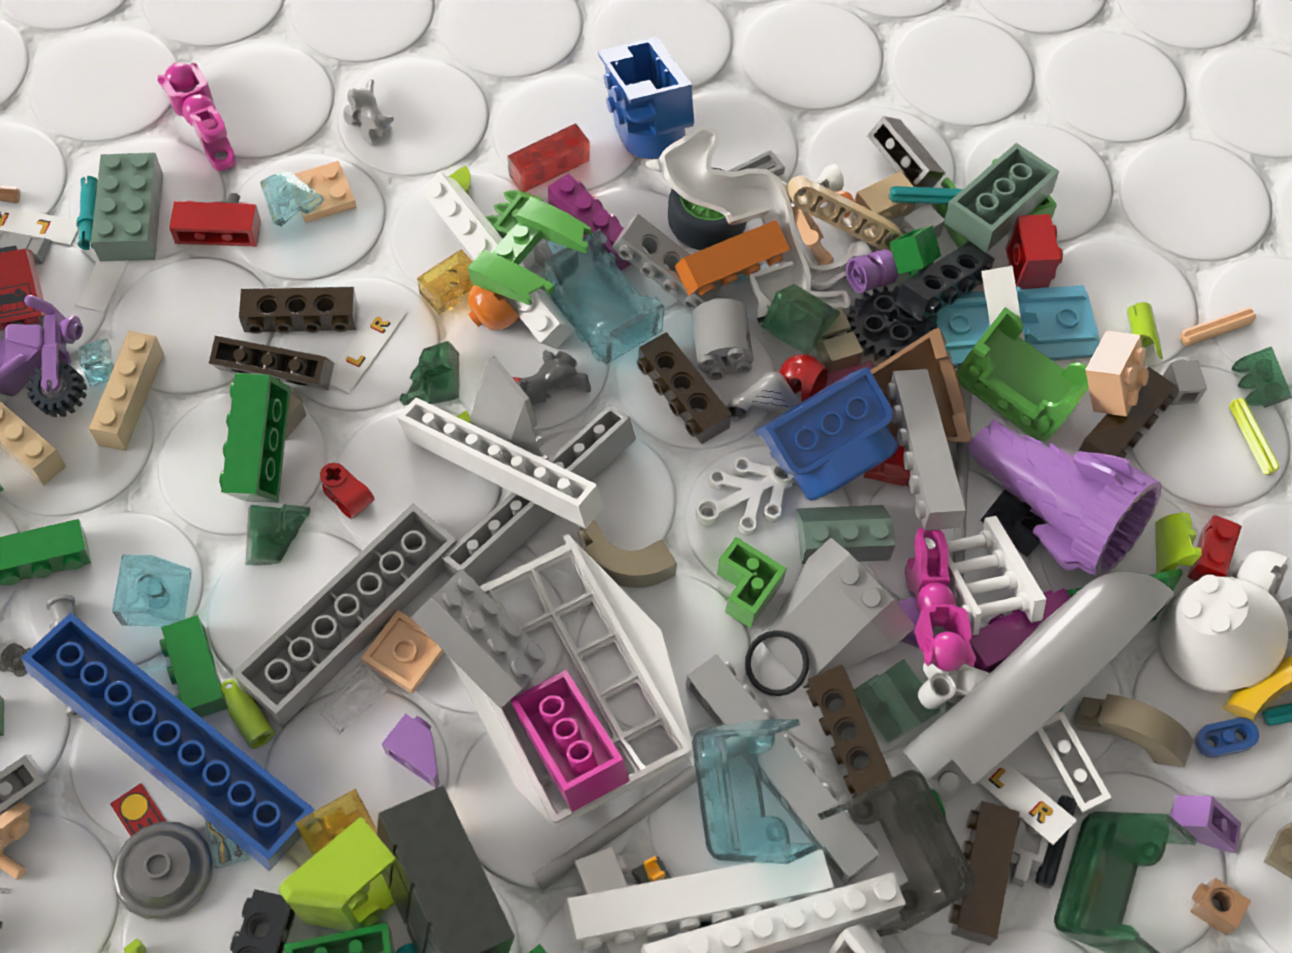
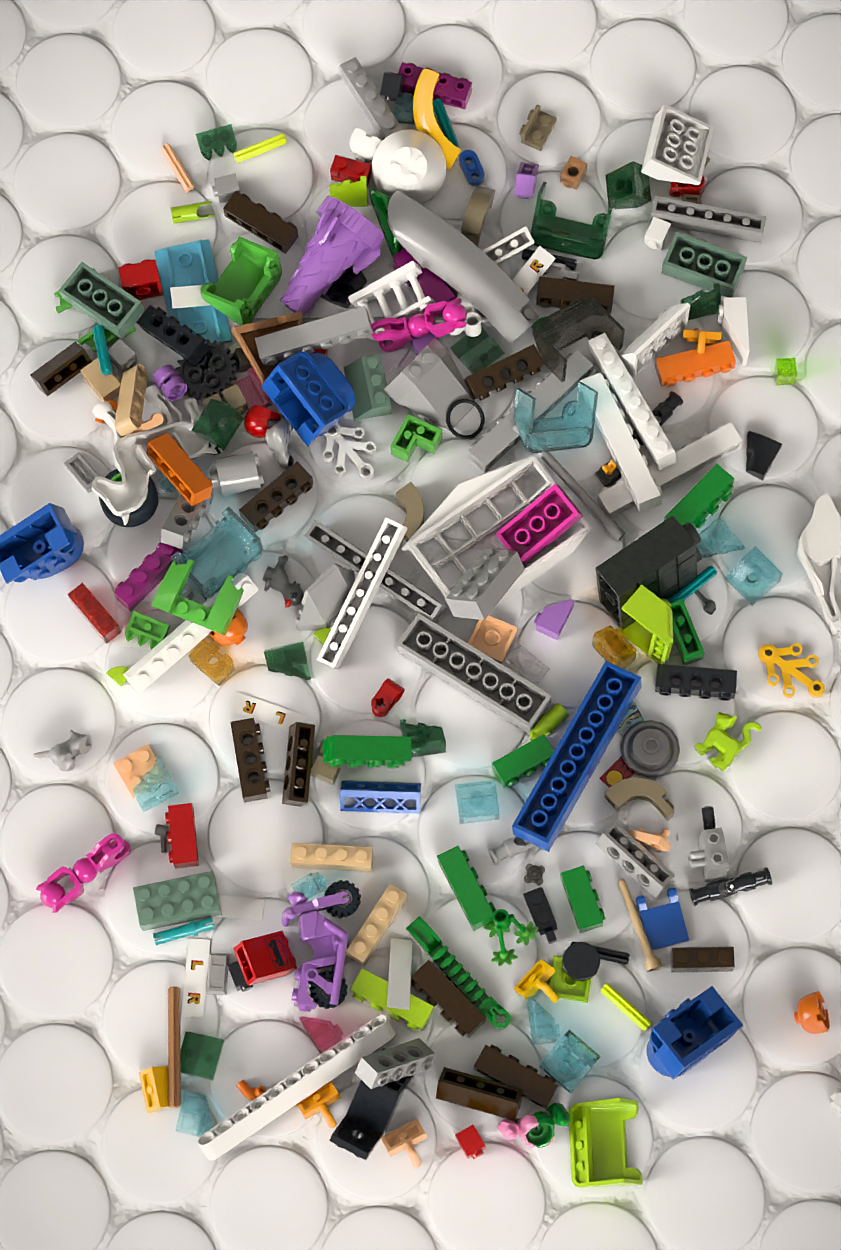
camera: 90 degrees left, 10 degrees up
(94, 843) = (639, 788): none -> dark tan arch
(199, 469) = (379, 790): none -> fence
(915, 250) = (152, 354): green brick -> none
(1116, 373) = (240, 223): light nougat brick -> none

